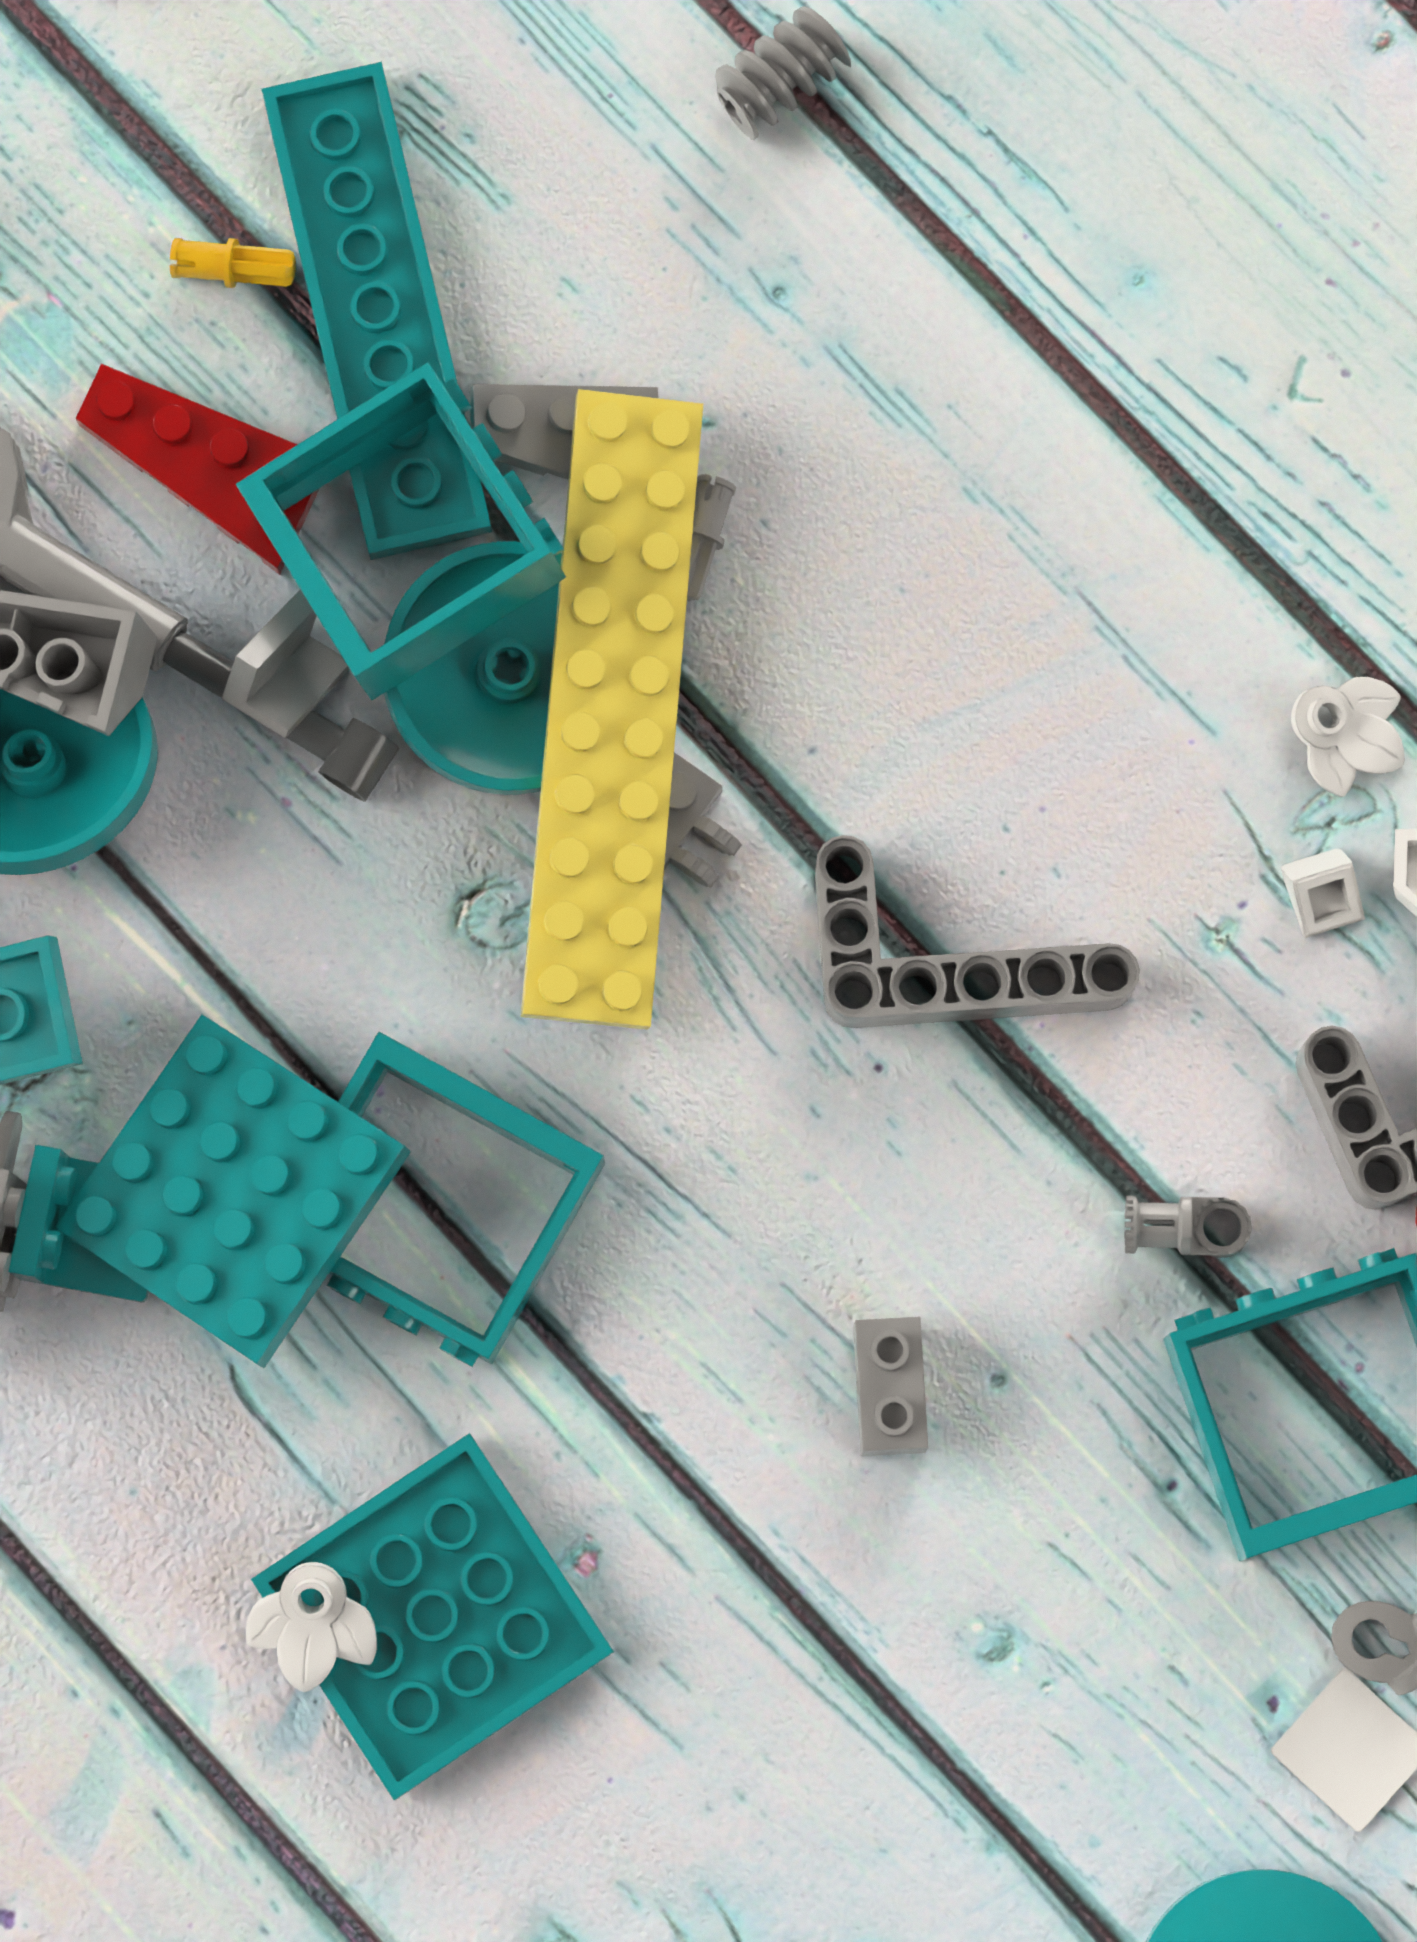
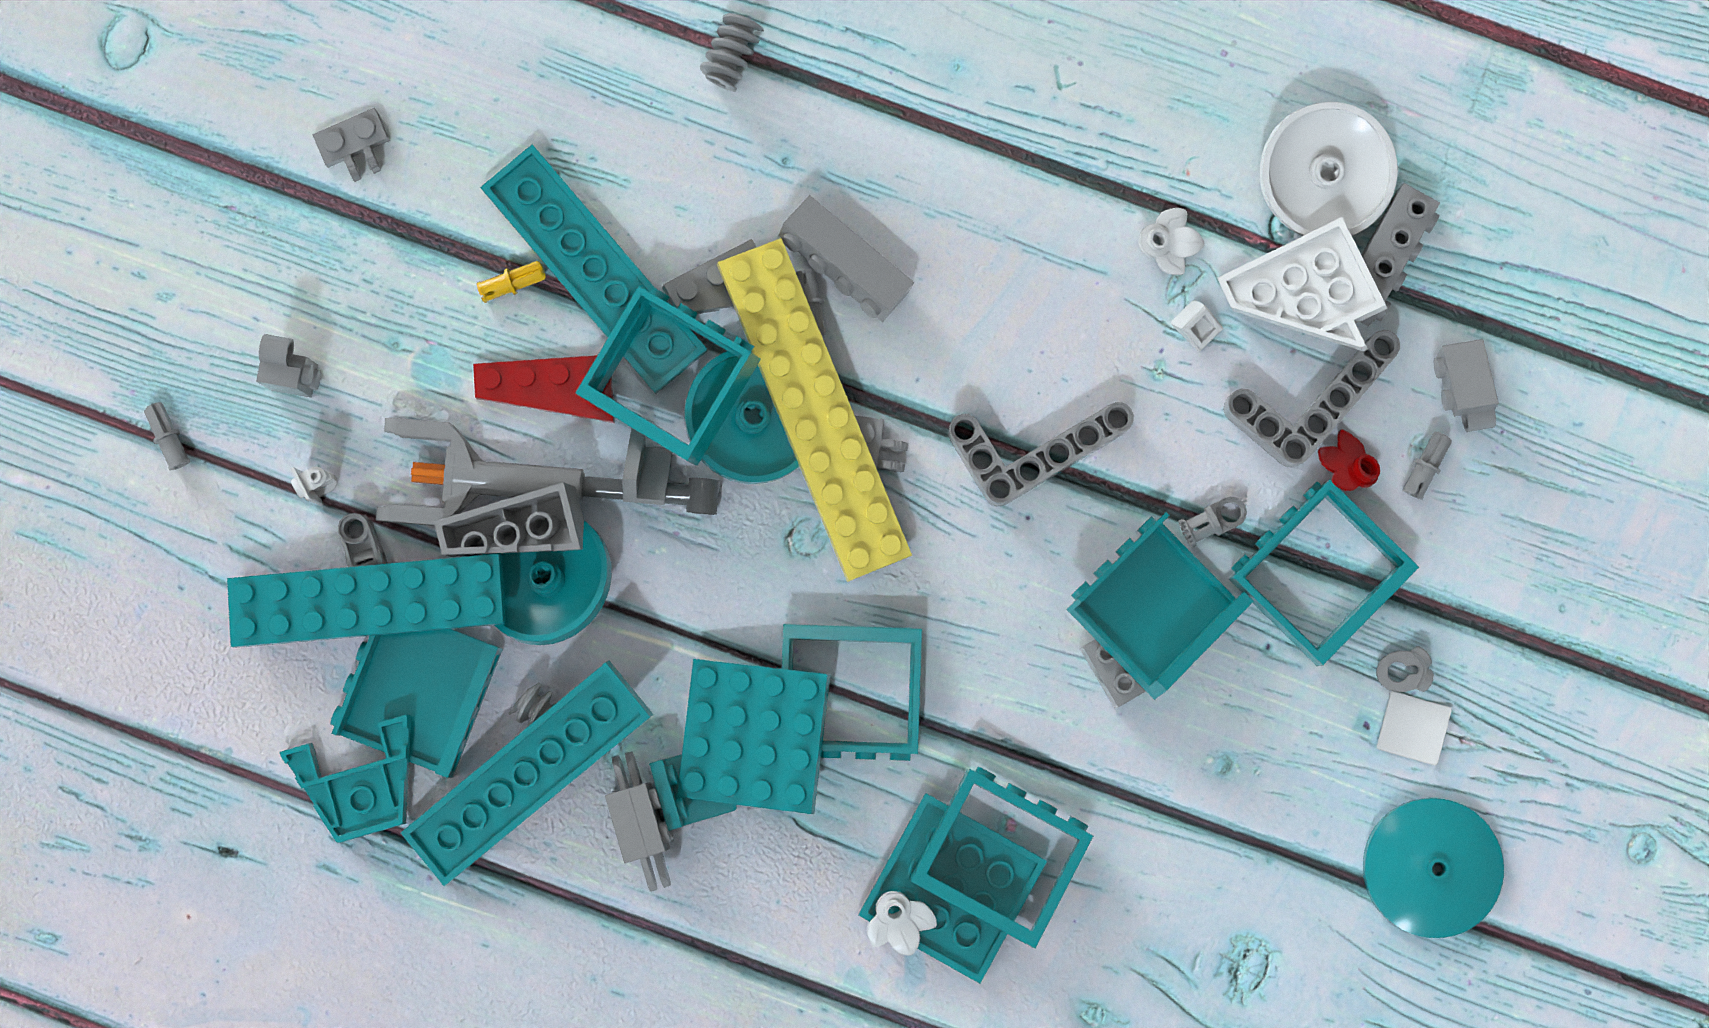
camera: 25 degrees left, 5 degrees up
(646, 1561) = (1042, 811): none -> teal window
(792, 493) = (845, 259): none -> light grey brick
(1012, 1316) = (1156, 607): none -> teal panel

